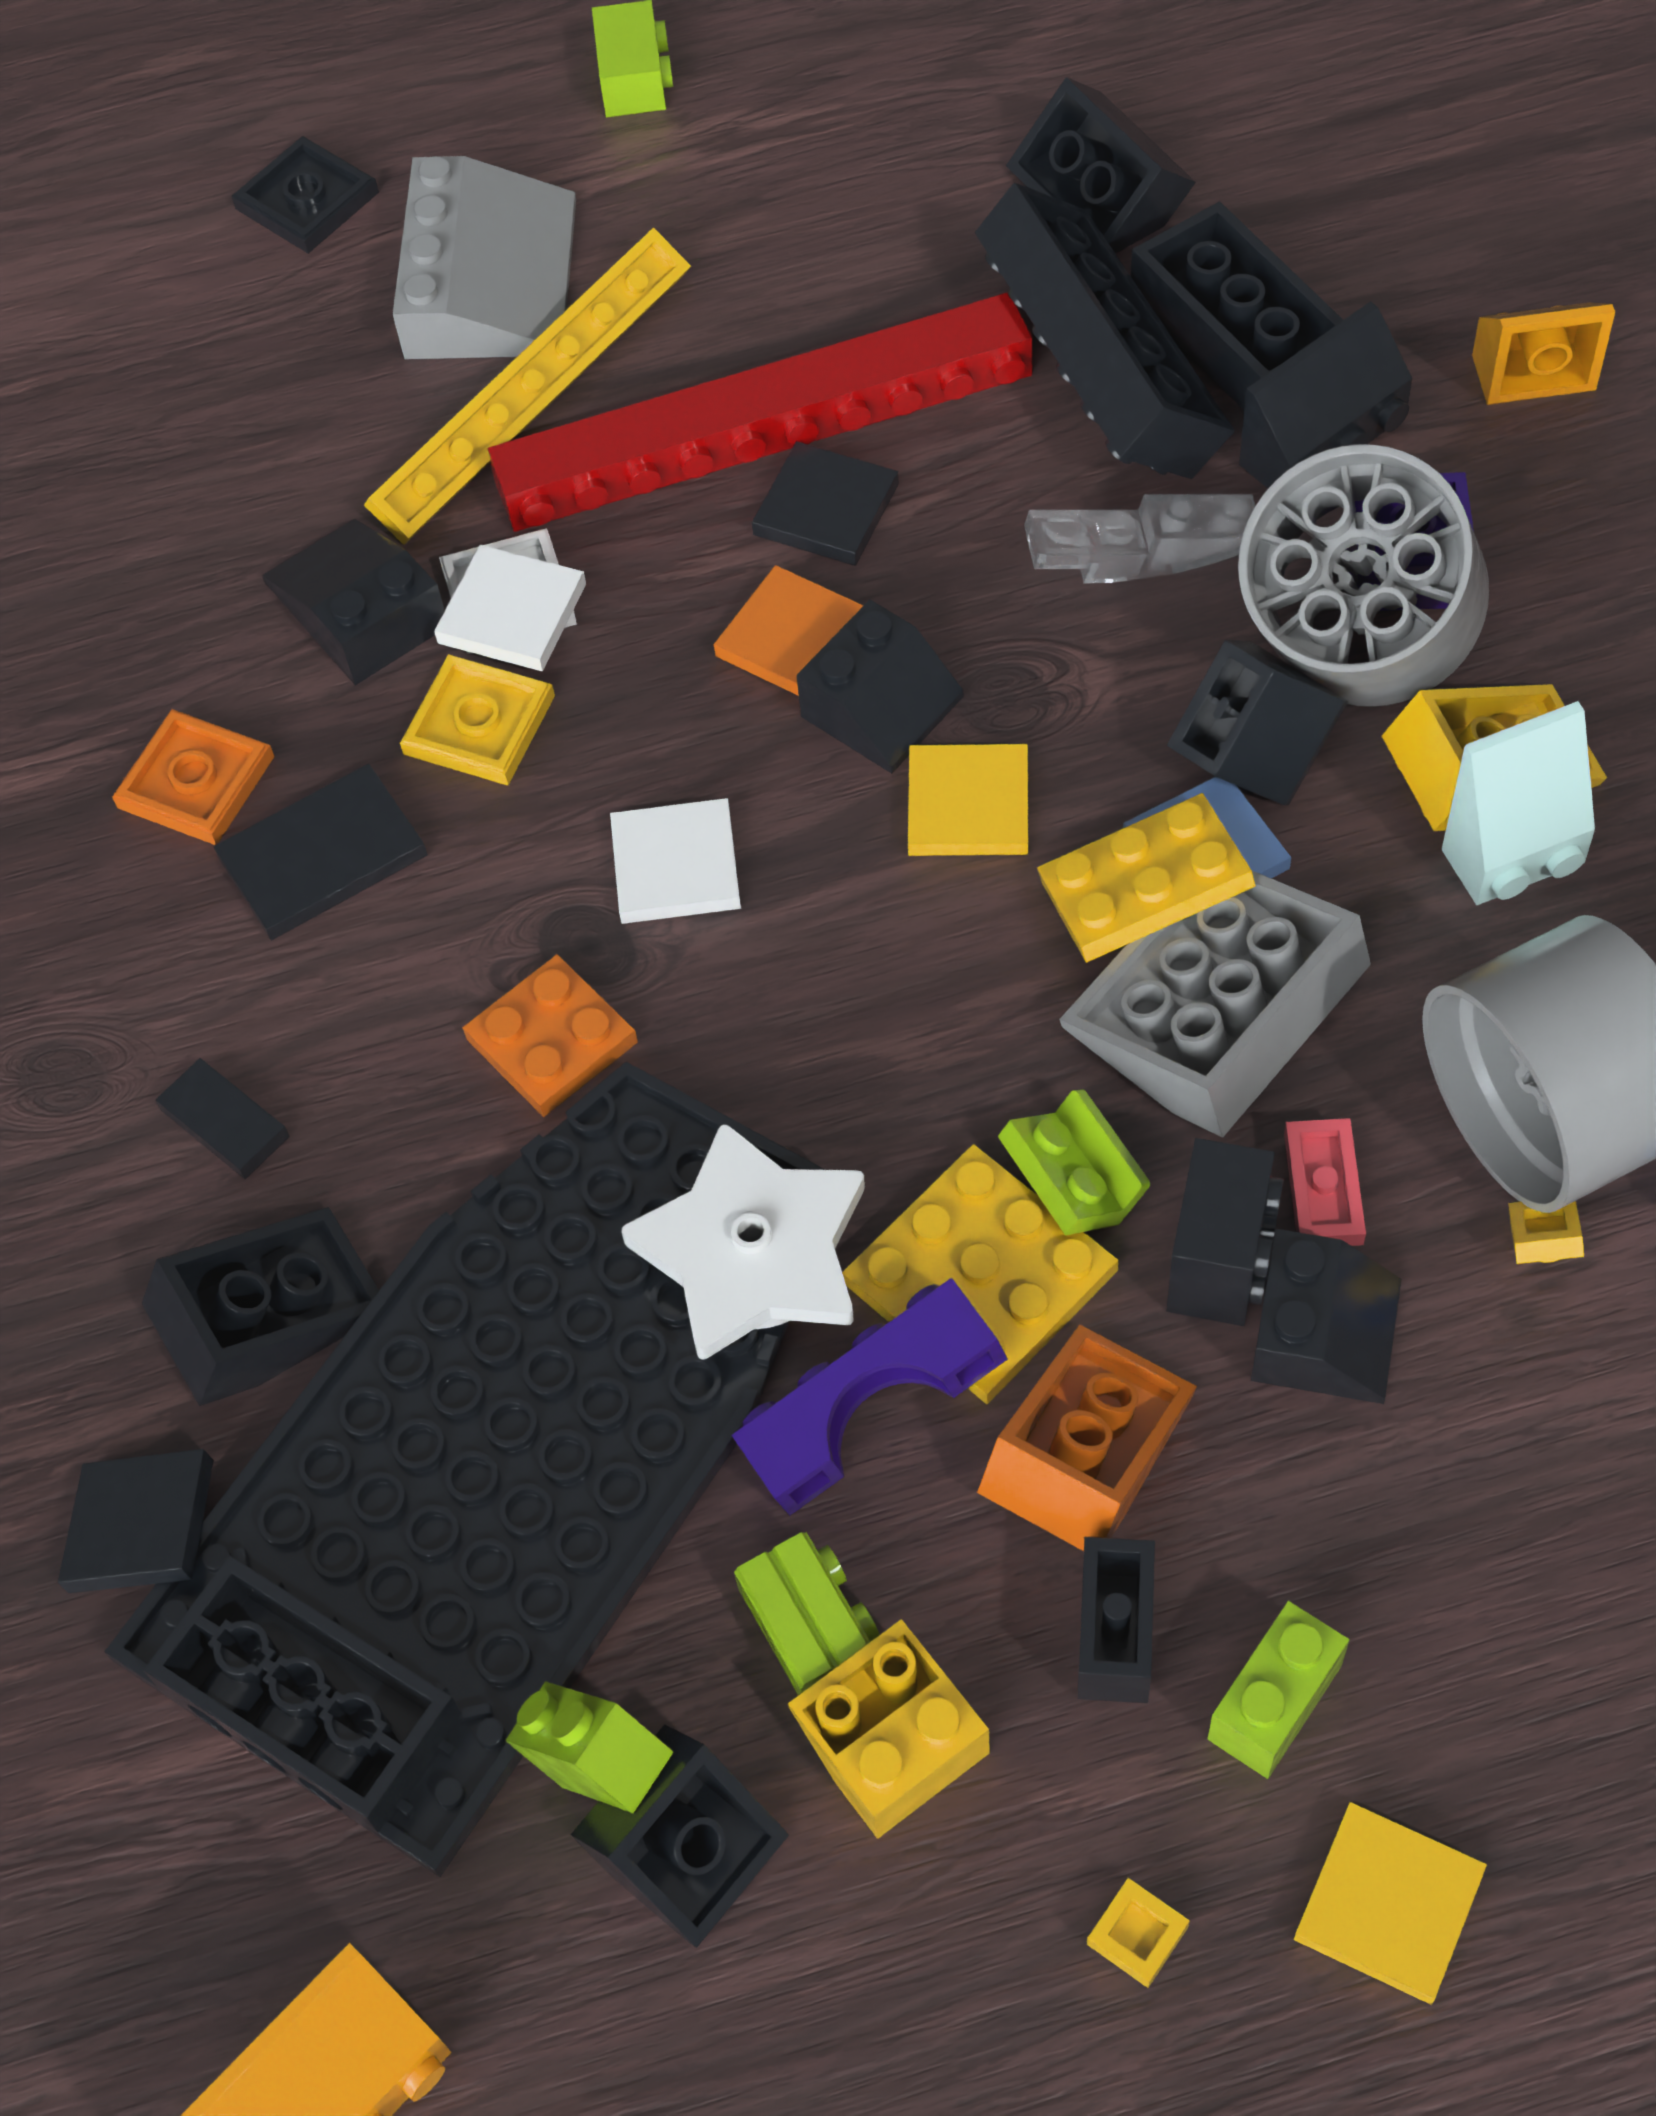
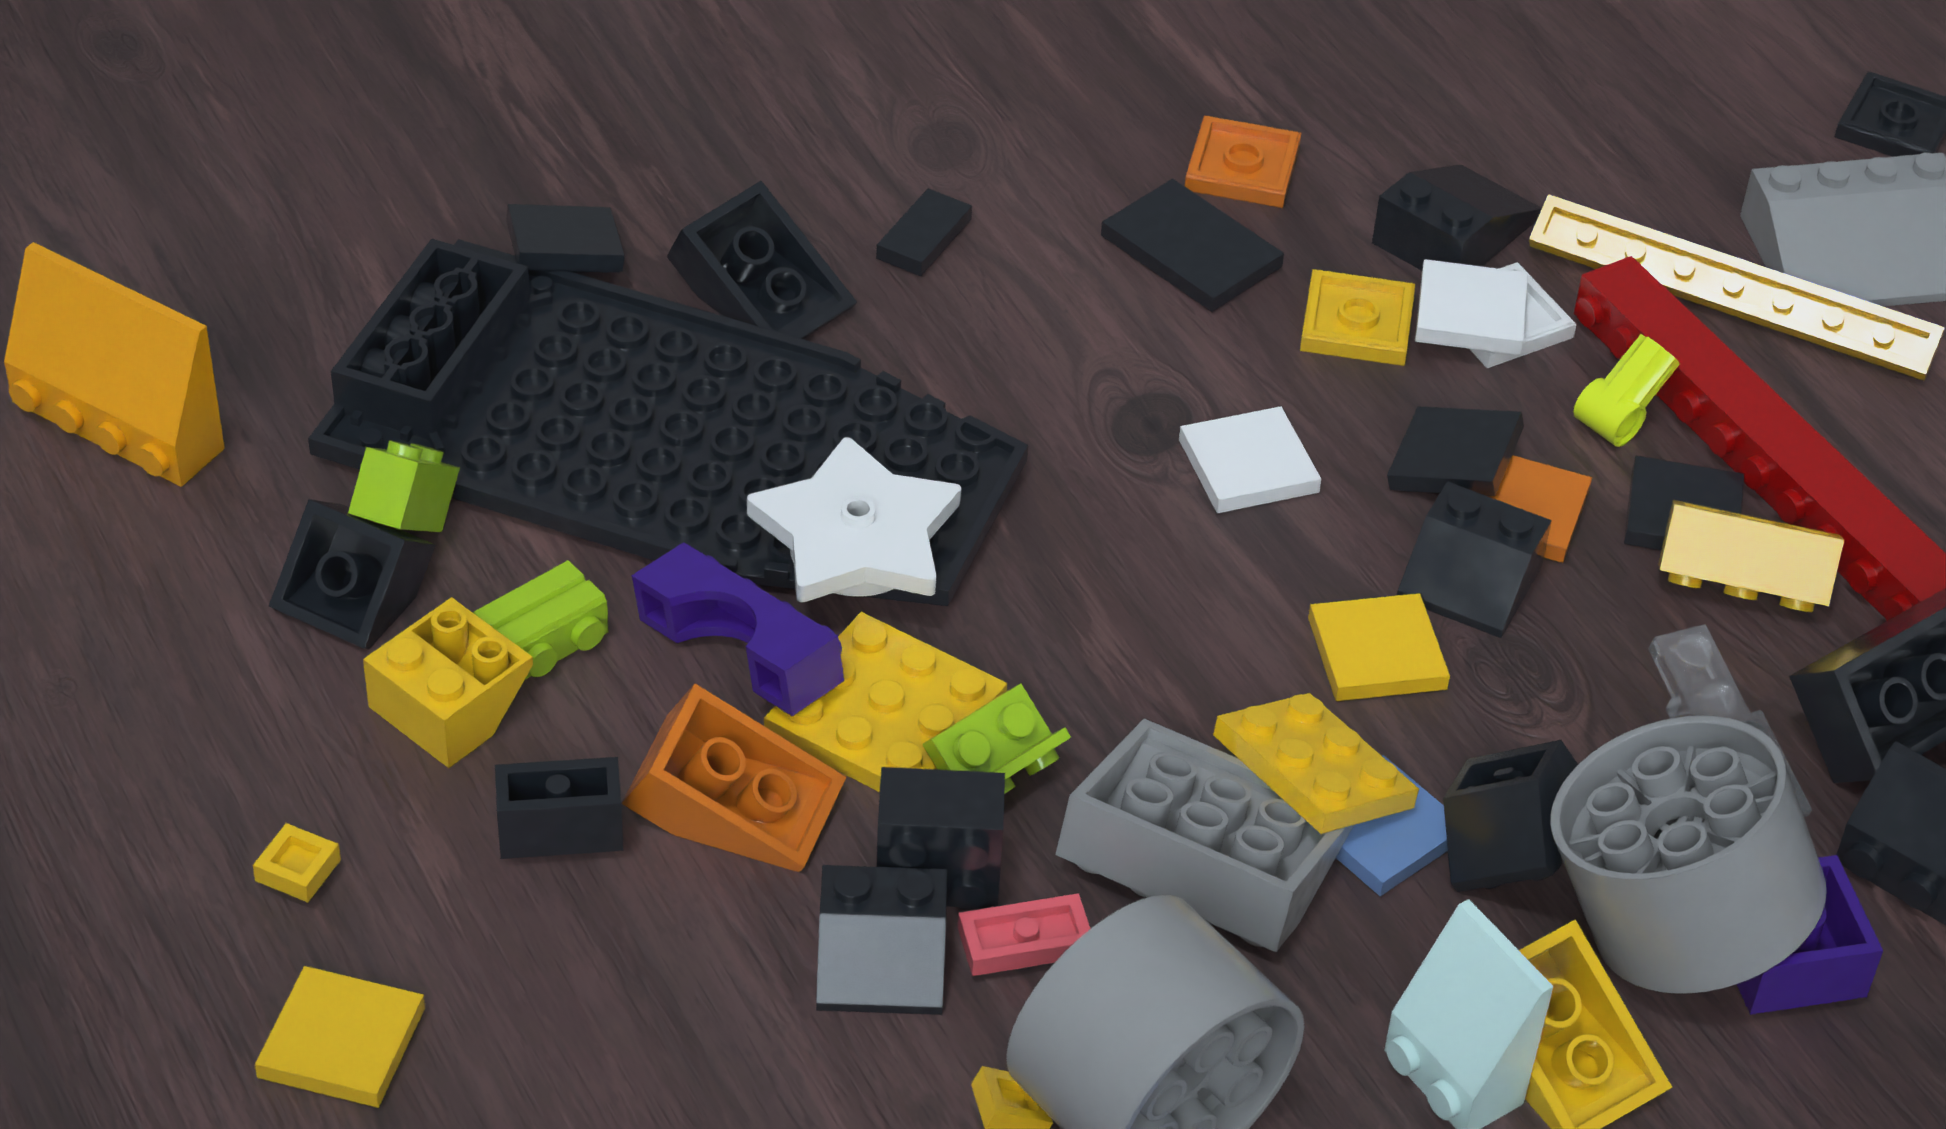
camera: 70 degrees right, 15 degrees down
(550, 1035) = (1052, 407): orange plate -> none
(681, 516) = (1617, 404): none -> neon yellow piece
(716, 669) = (1455, 447): none -> black tile
(924, 458) = (1750, 555): none -> yellow brick
(1277, 1689) = (514, 929): lime brick -> none

